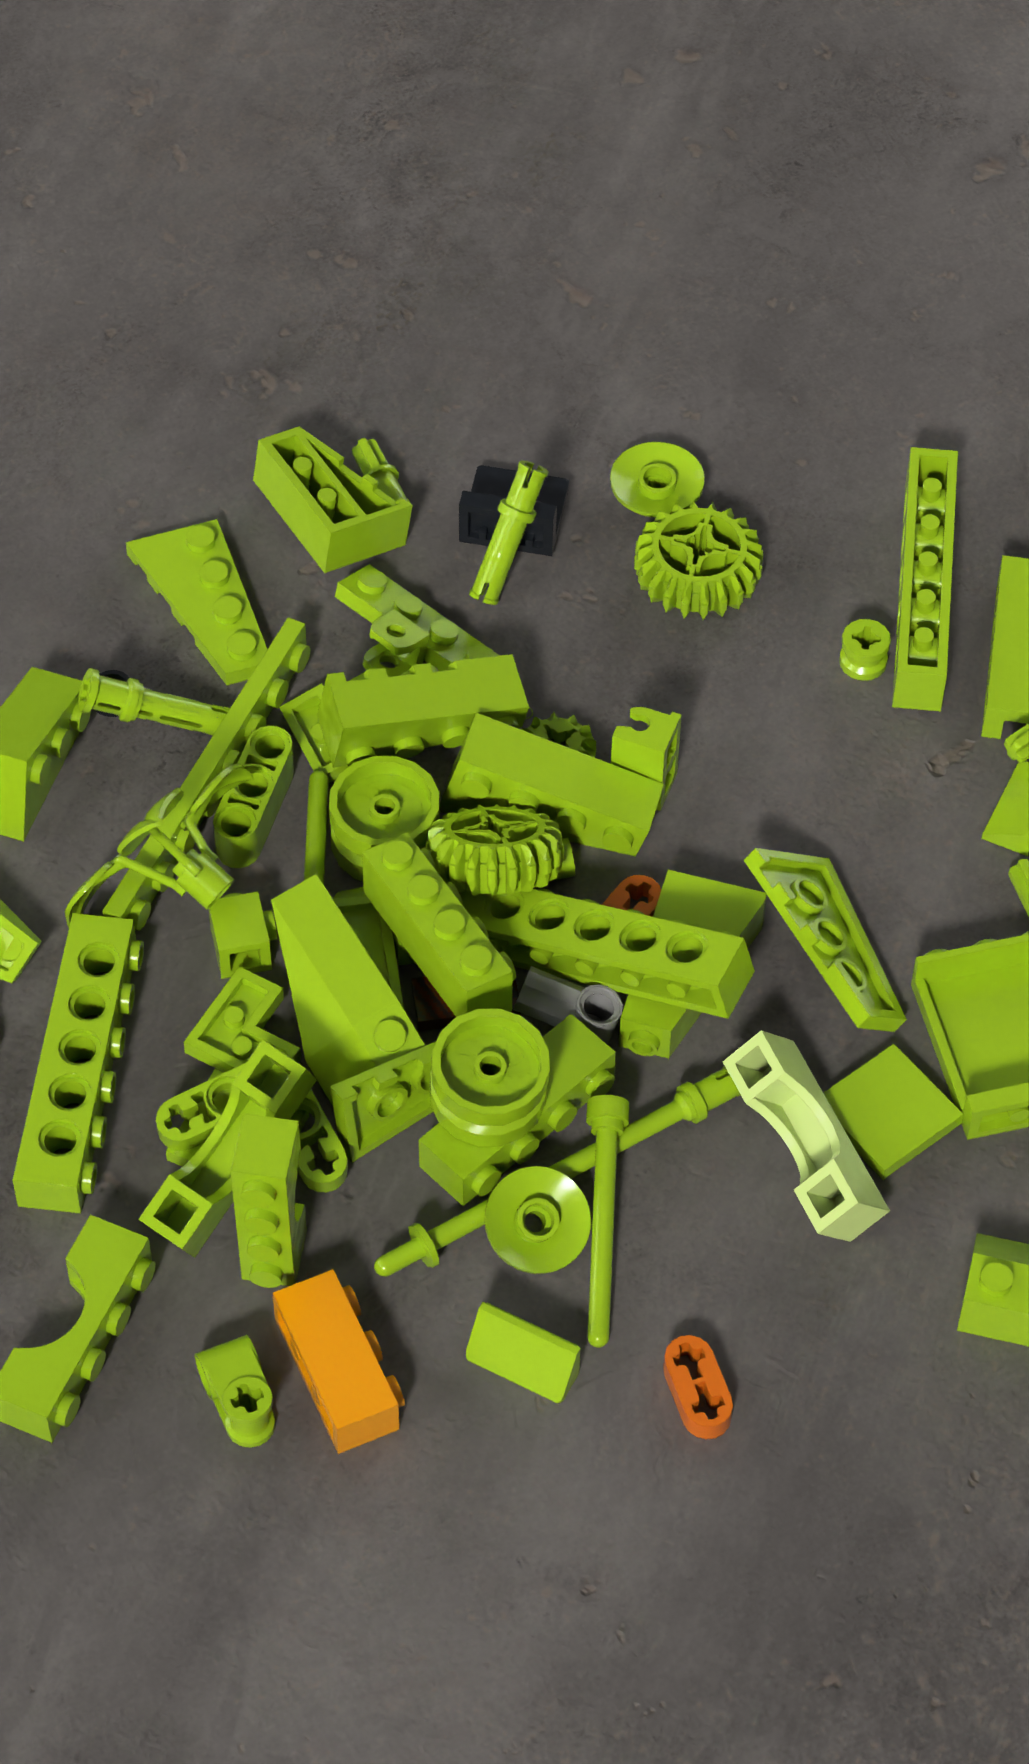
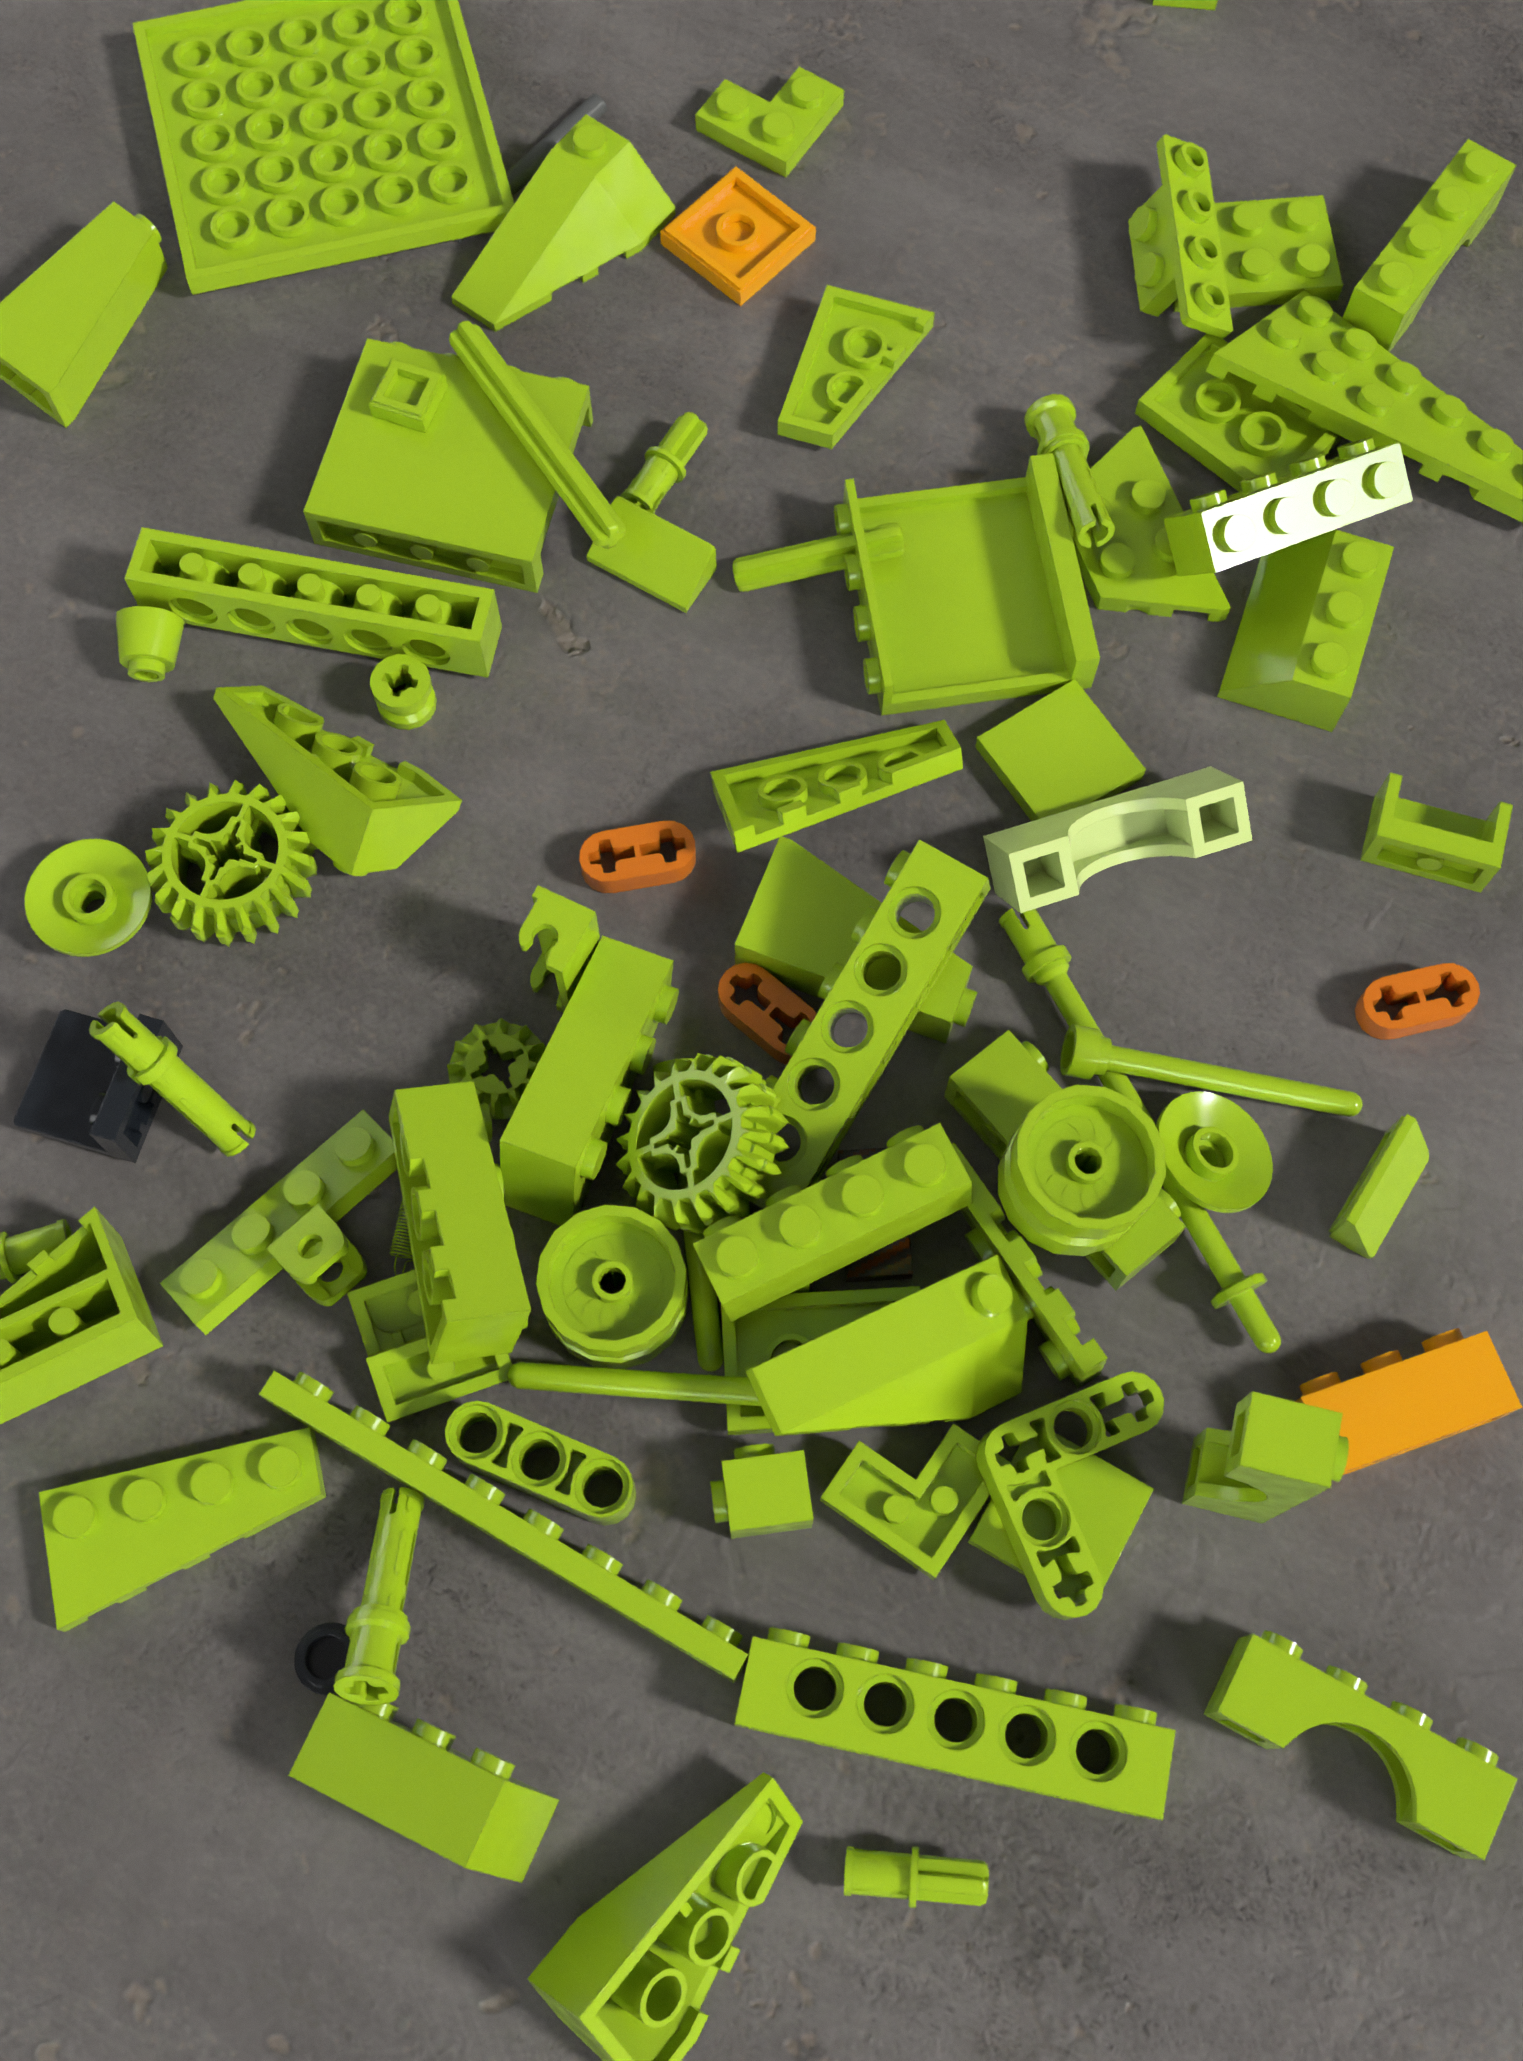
camera: 85 degrees left, 15 degrees up
(196, 872) = (701, 1555): lime plant -> none
(201, 1190) = (1094, 1472): lime arch -> none
(237, 1385) = (1432, 1532): lime piece -> none
(554, 999) = (915, 1085): light grey piece -> none
(737, 822) = (638, 856): none -> orange beam
(778, 616) = (346, 799): none -> lime wedge
(858, 1394) = (1434, 840): none -> lime panel
(875, 485) = (148, 641): none -> lime hat

